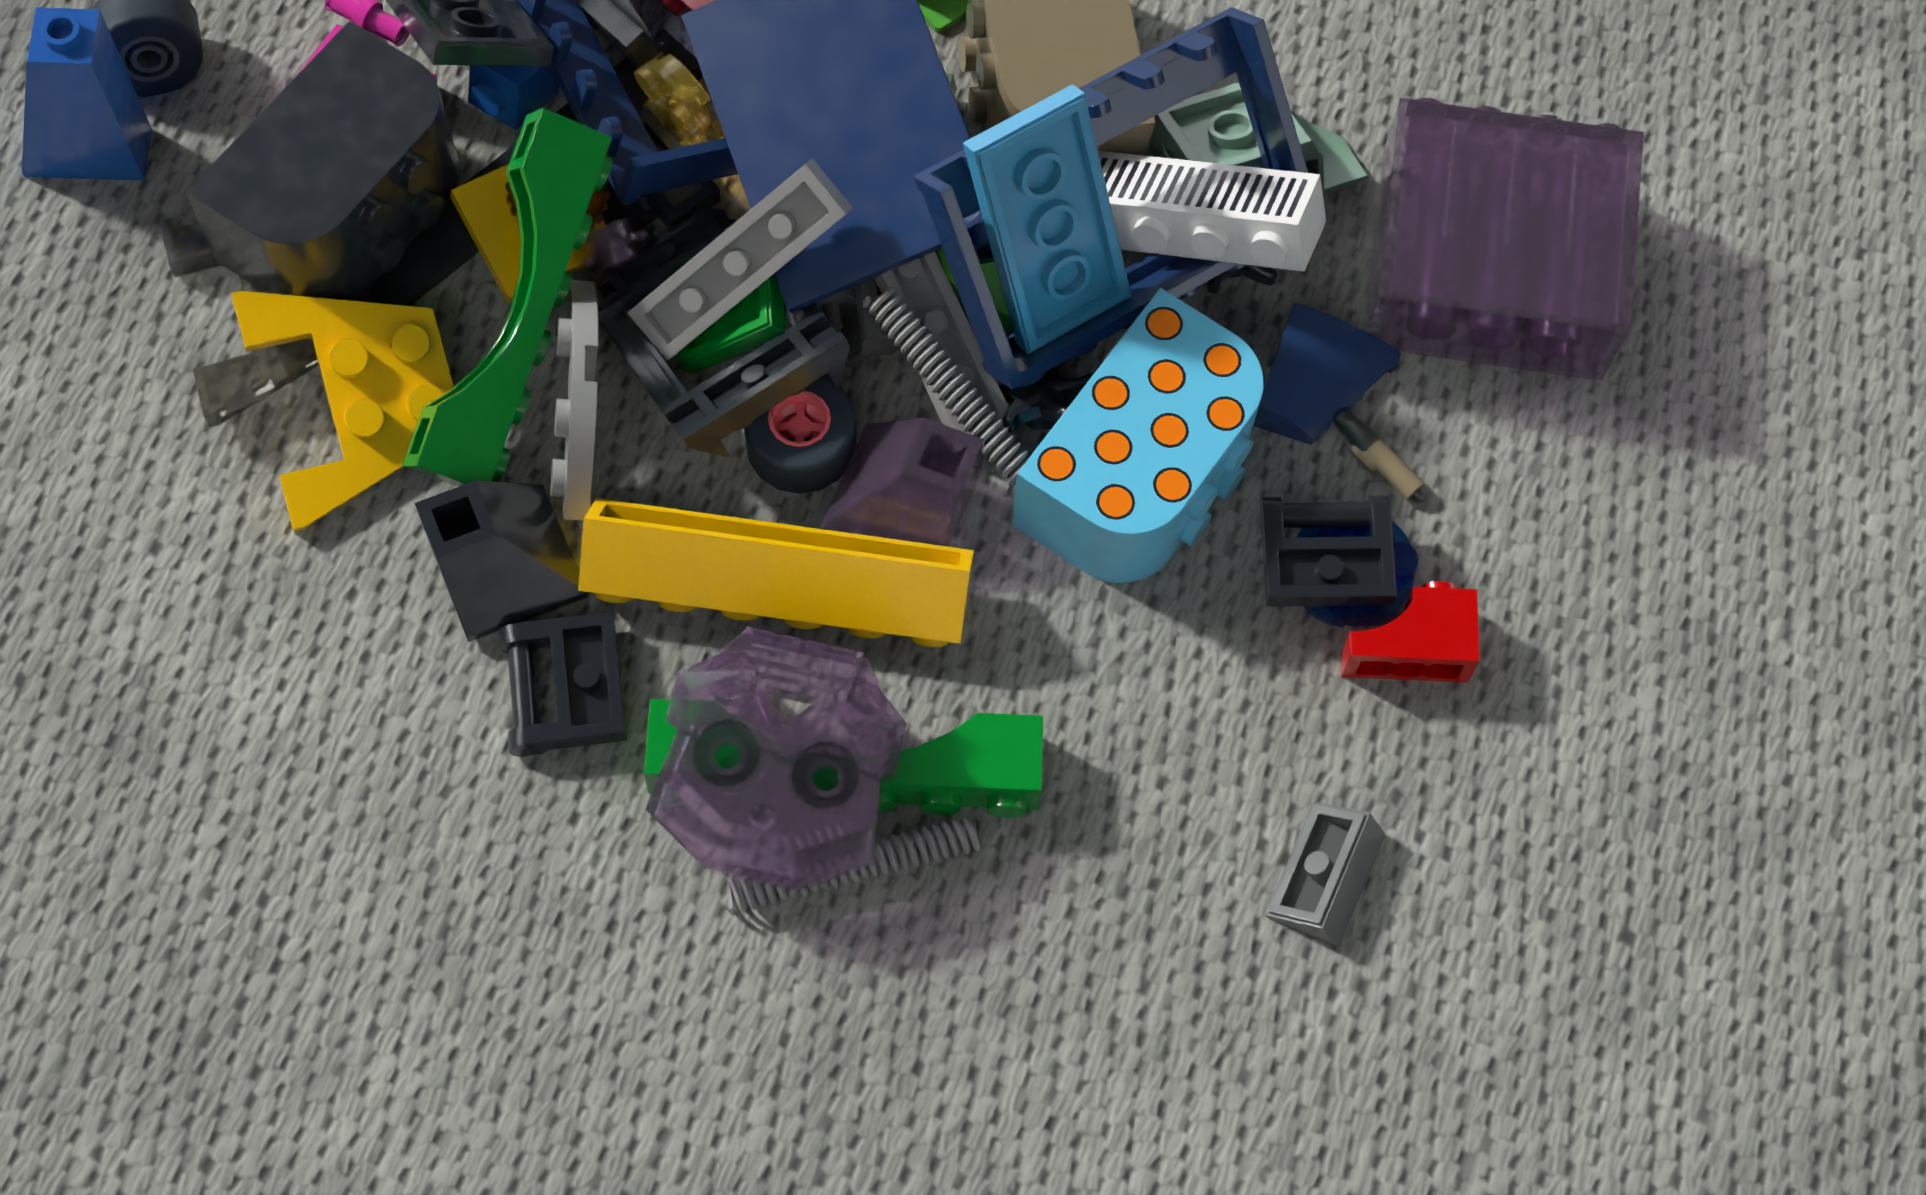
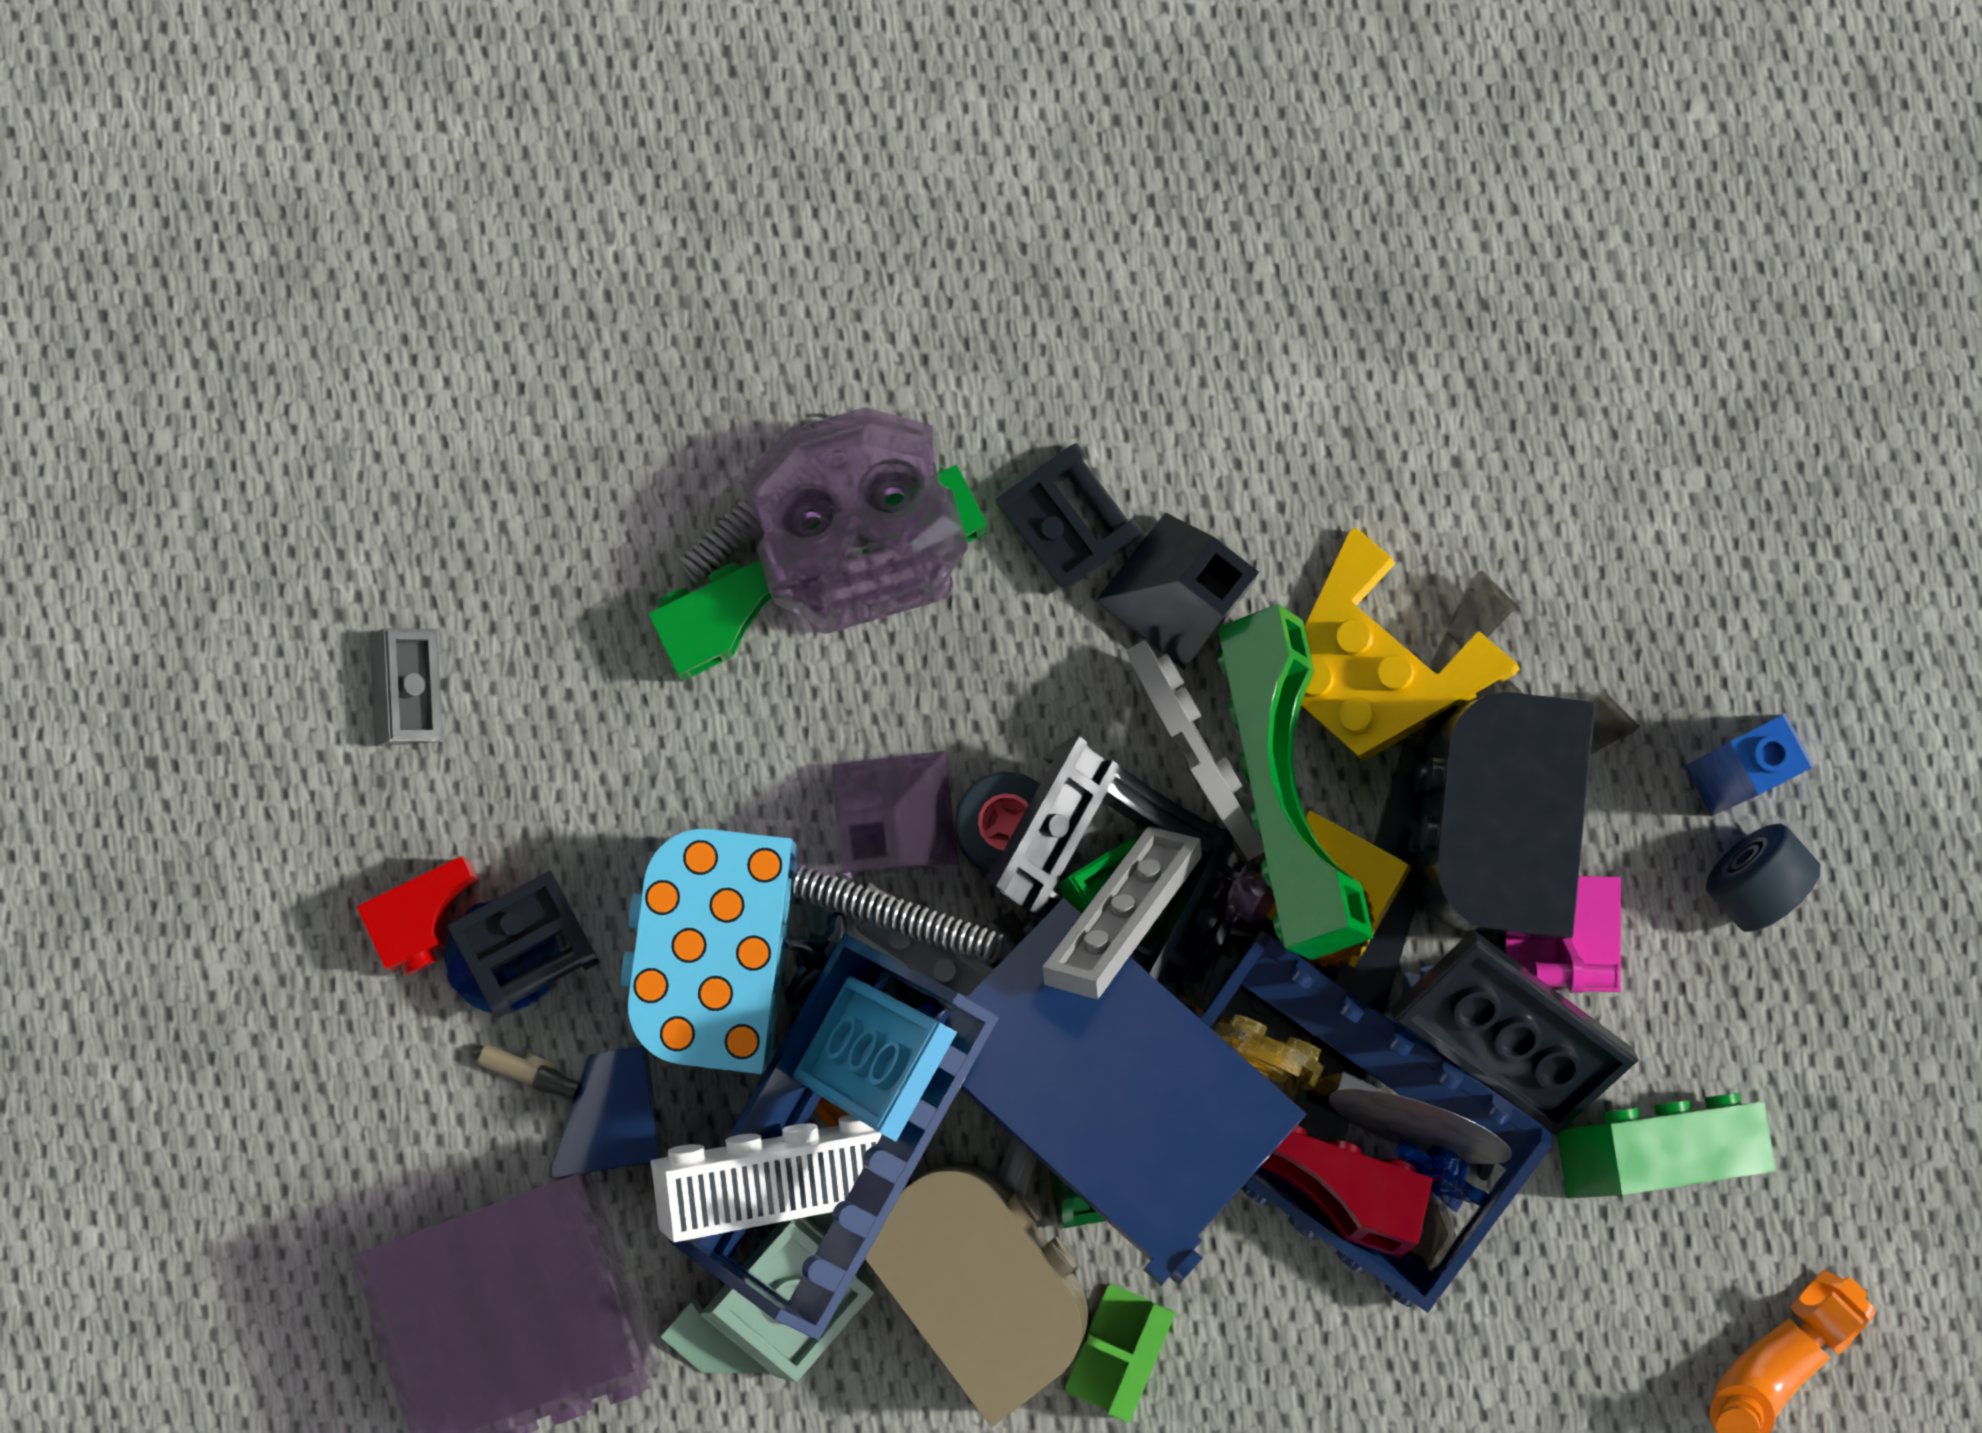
camera: 155 degrees right, 15 degrees up
(775, 572) = (953, 687): yellow brick -> none

